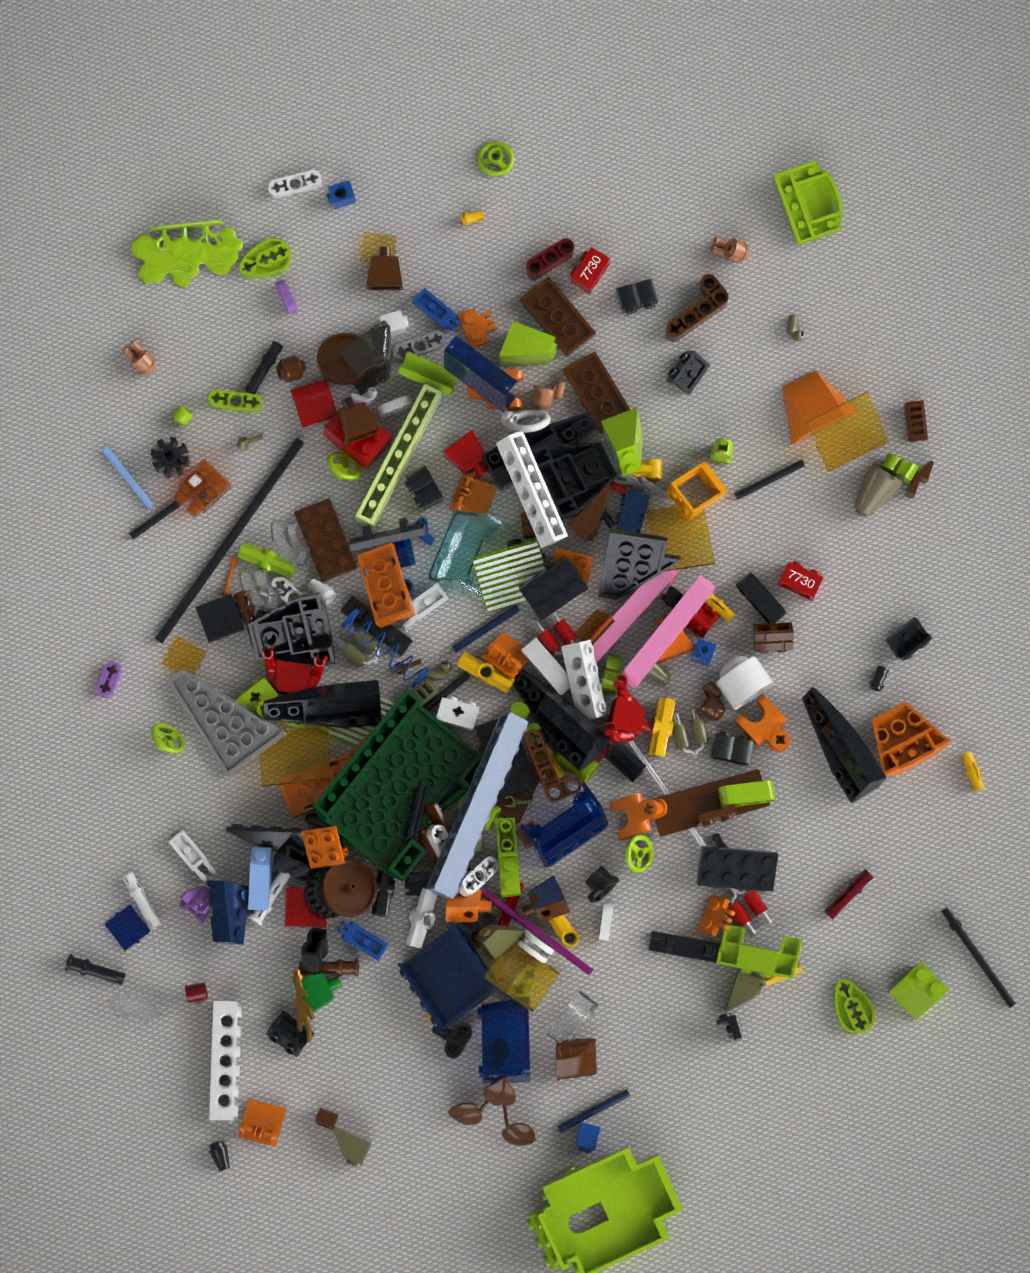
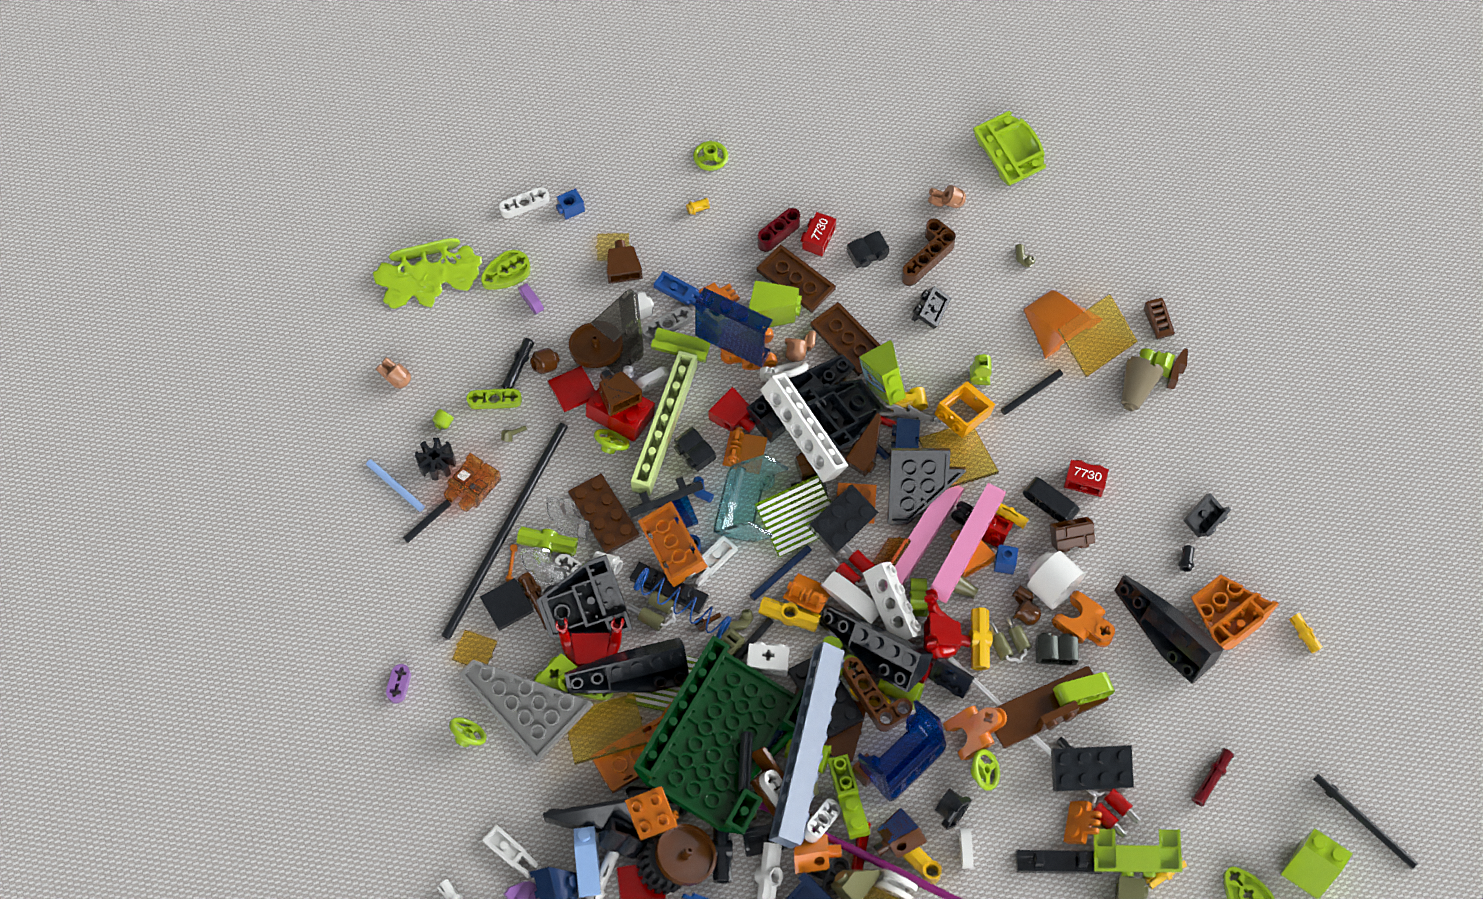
camera: 10 degrees left, 15 degrees down
(517, 801) = (846, 738): olive hand -> none

